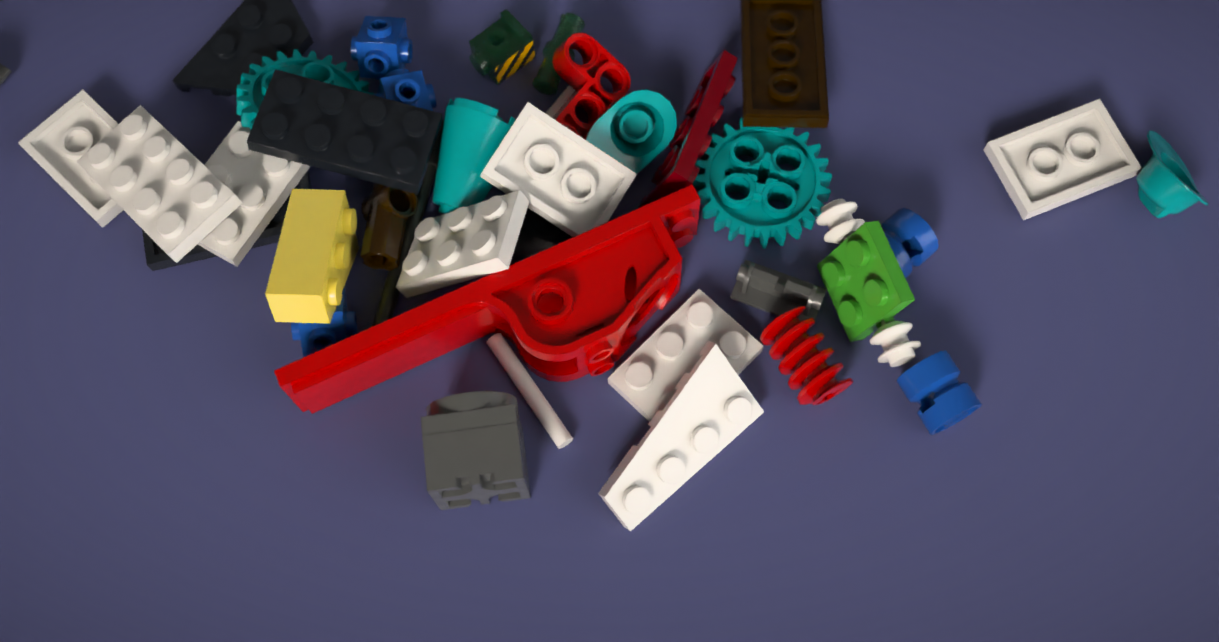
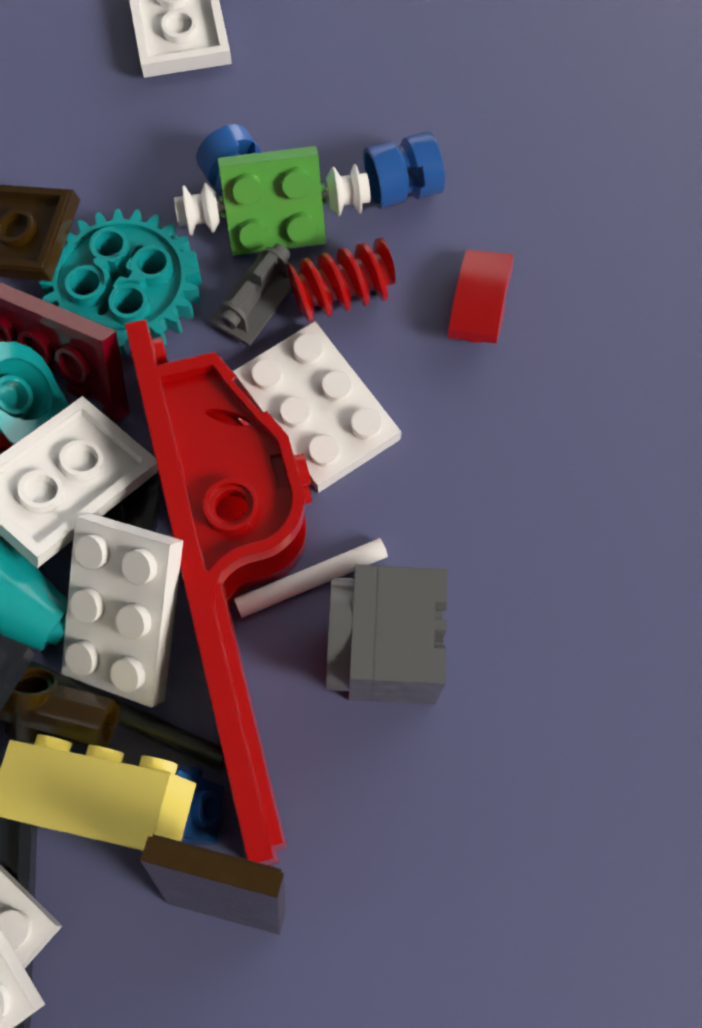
camera: 85 degrees left, 0 degrees up
(253, 351) = (216, 883): none -> tile
(692, 429) = (407, 419): white wing -> none
(821, 484) = (480, 296): none -> red slope

